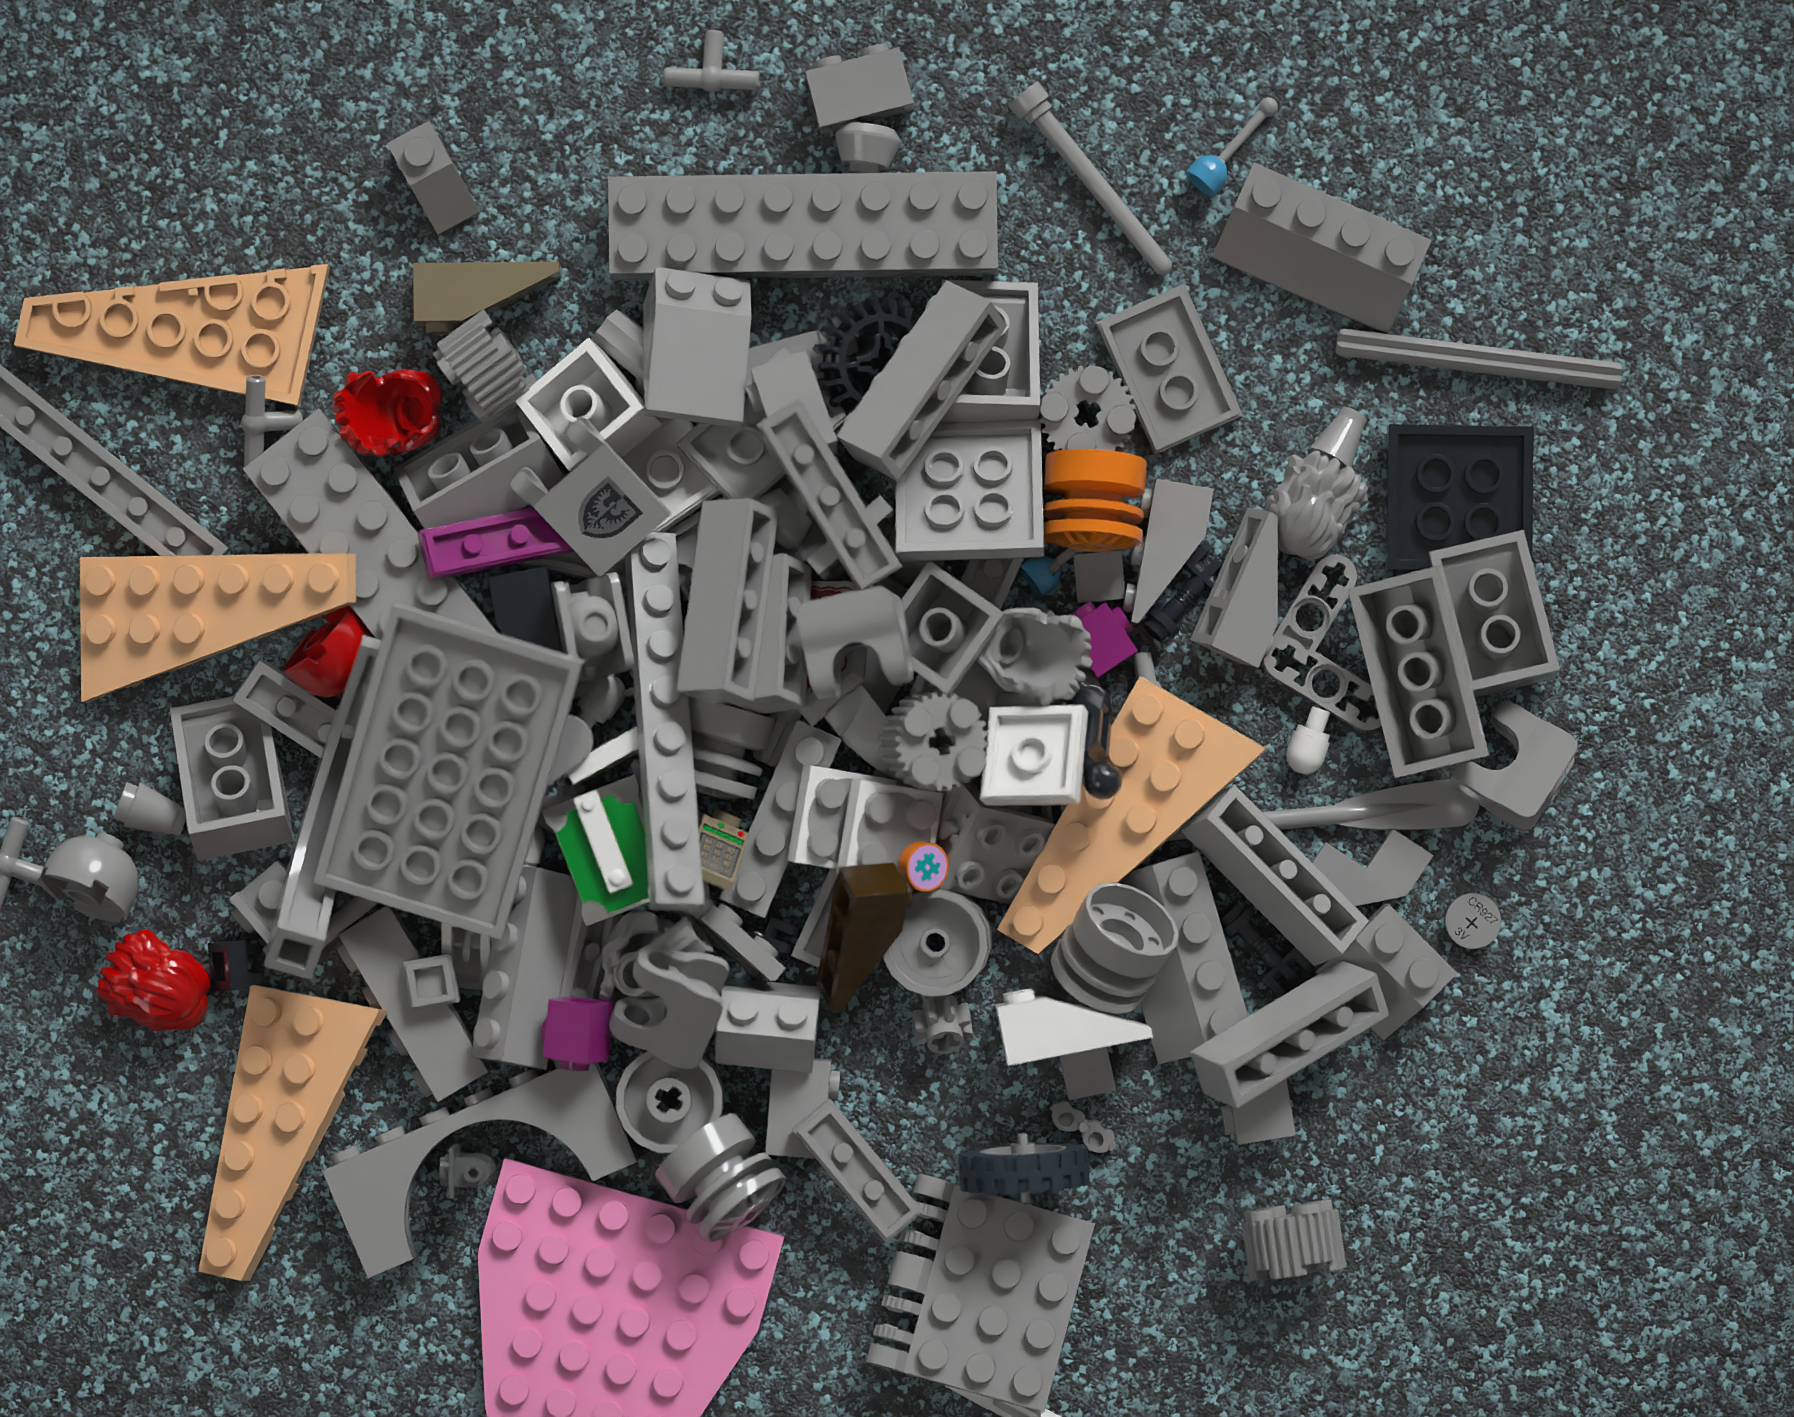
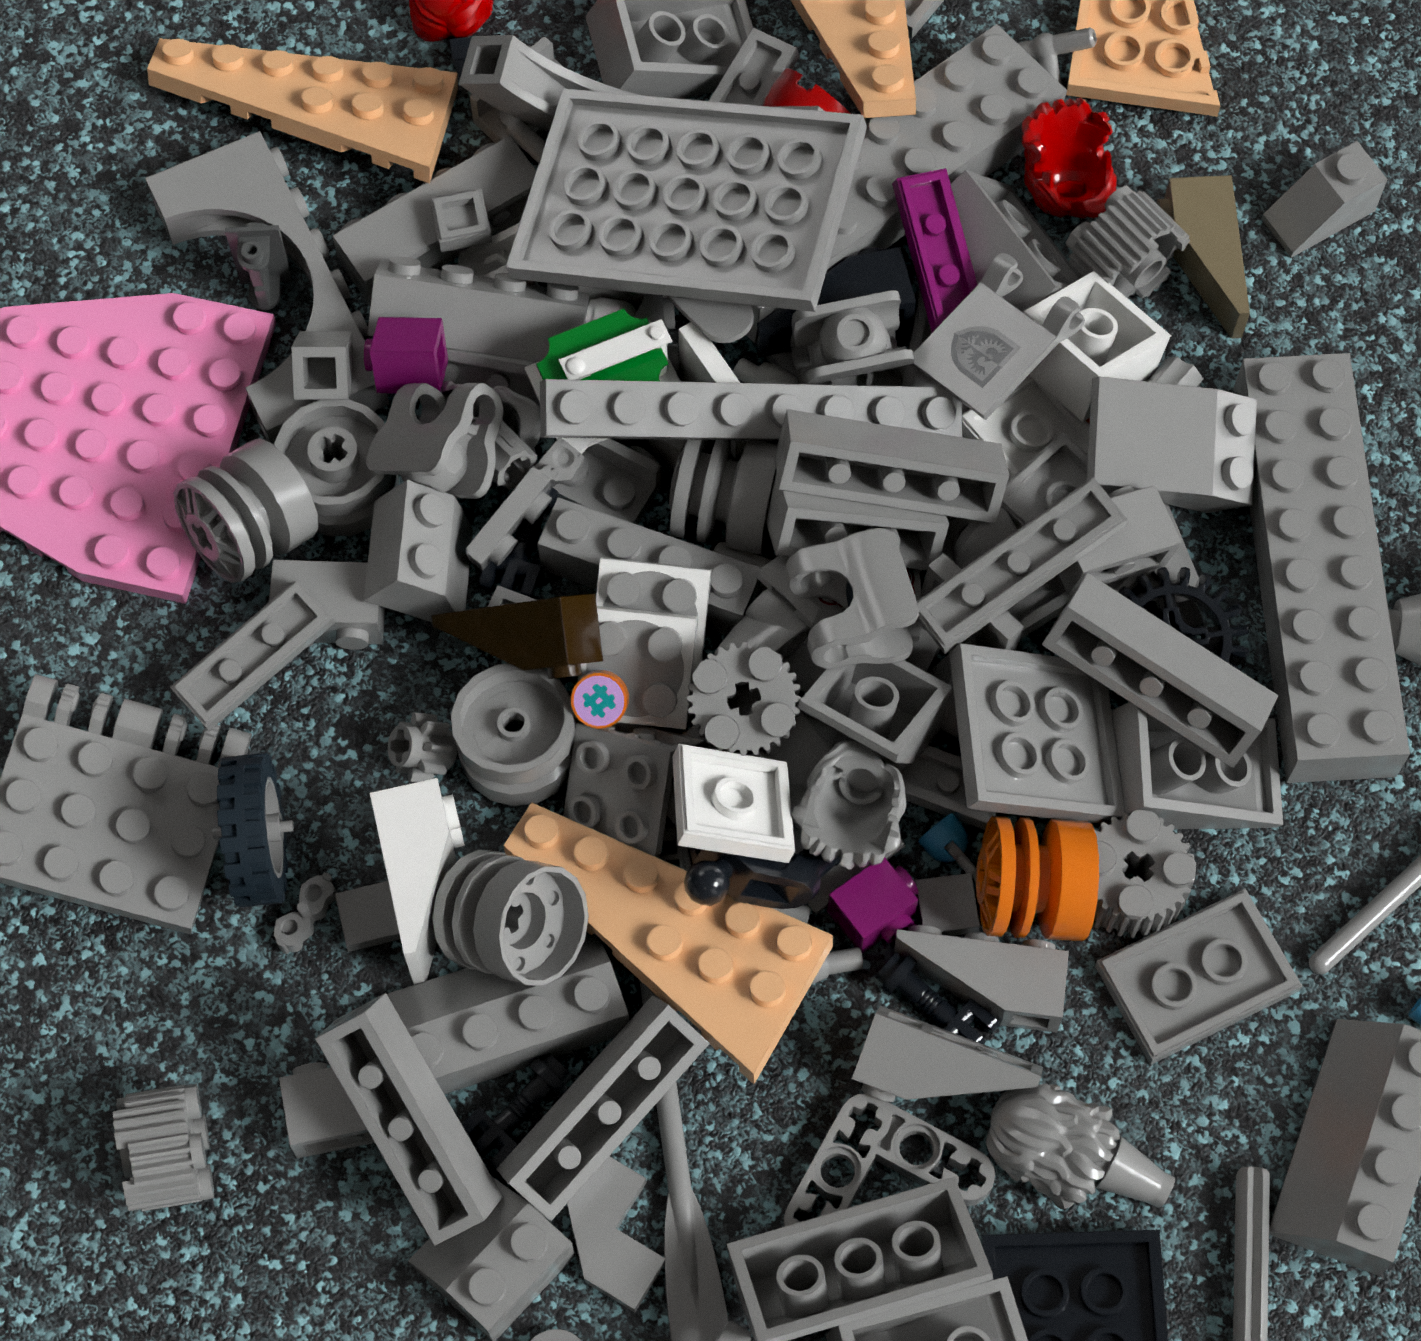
camera: 90 degrees right, 20 degrees down
(581, 1108) = (322, 365): none -> light grey brick
(720, 847) = (611, 481): slope -> none
(1309, 743) = (765, 1154): white cylinder -> none

